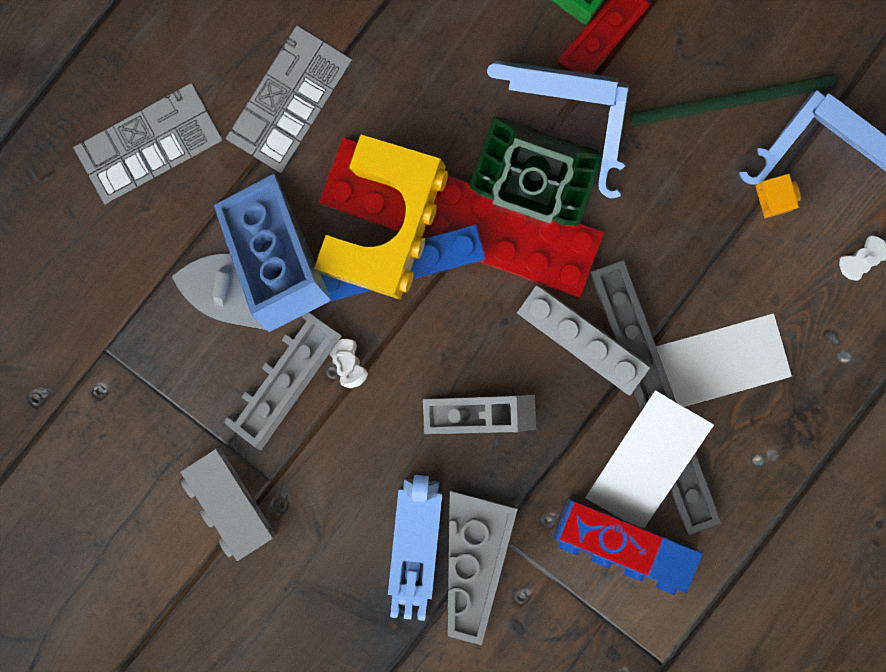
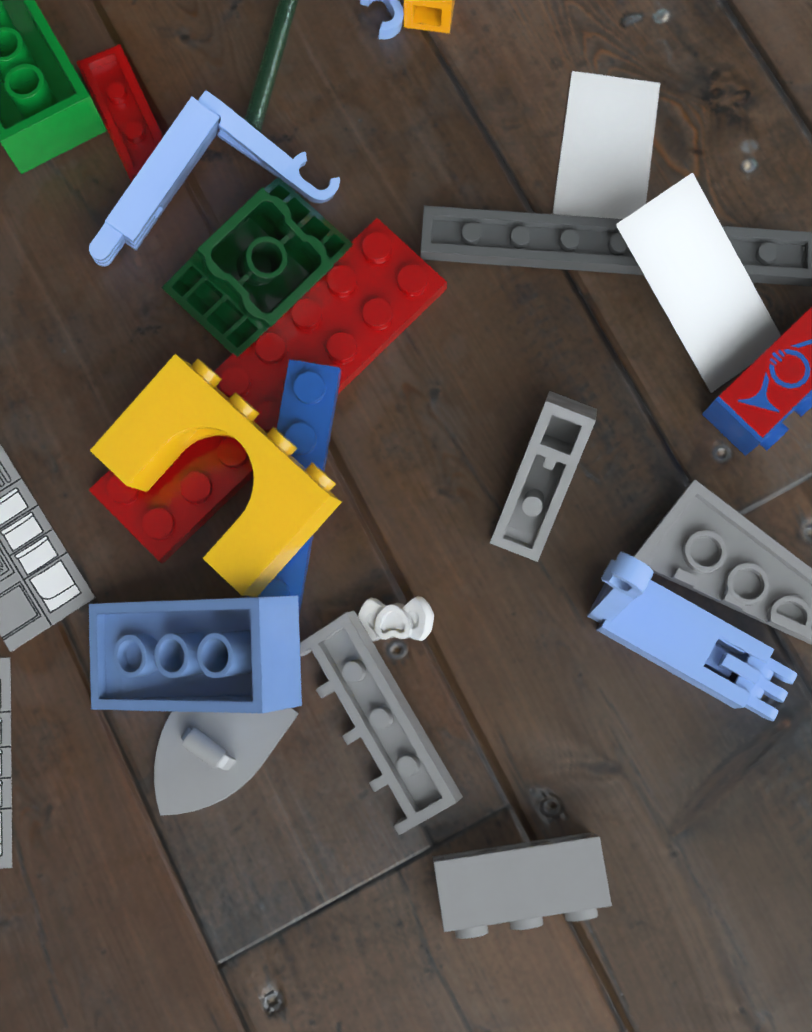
camera: 65 degrees left, 10 degrees down
(584, 339) = (505, 296): light grey plate -> none

